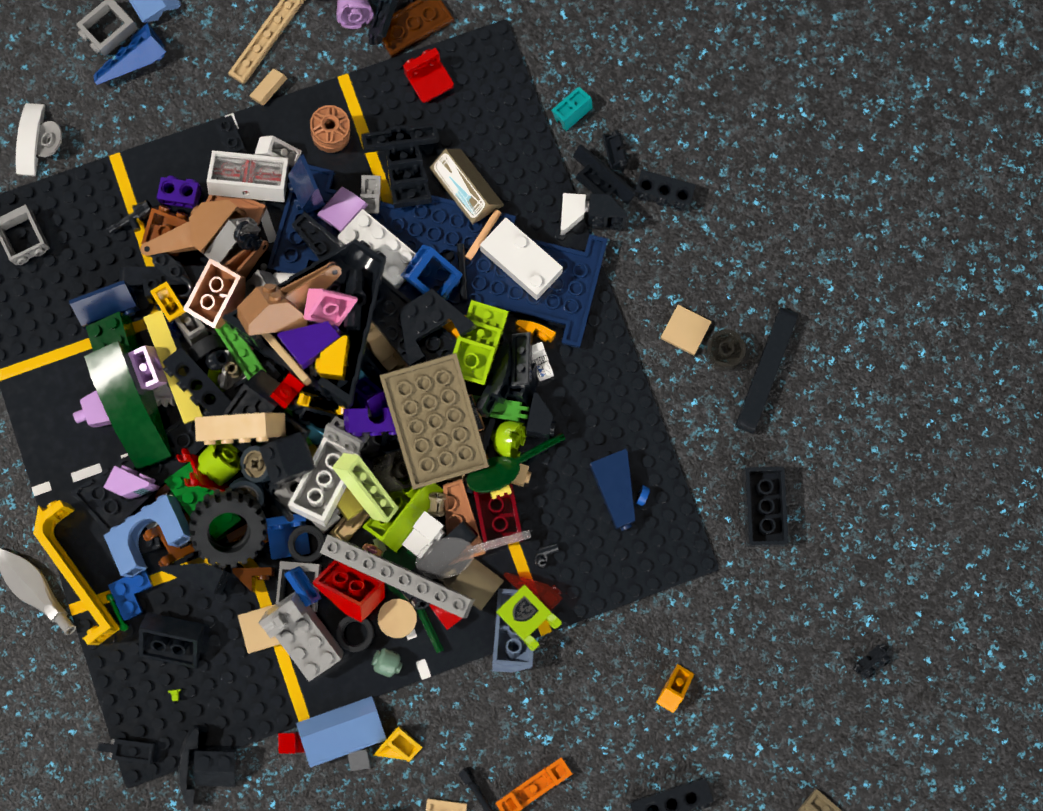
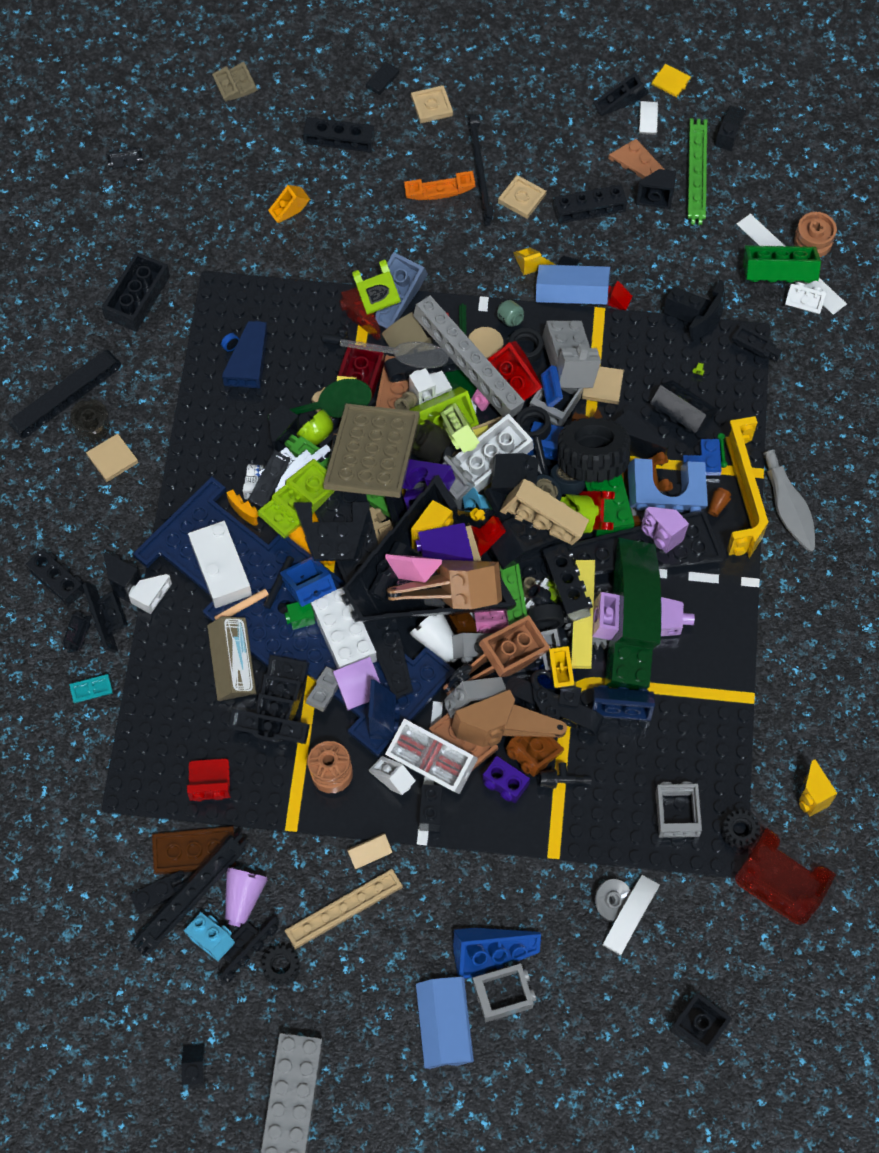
camera: 155 degrees left, 15 degrees down
(98, 552) = (718, 502): none -> dark orange cone
(428, 240) = (299, 616): none -> green brick

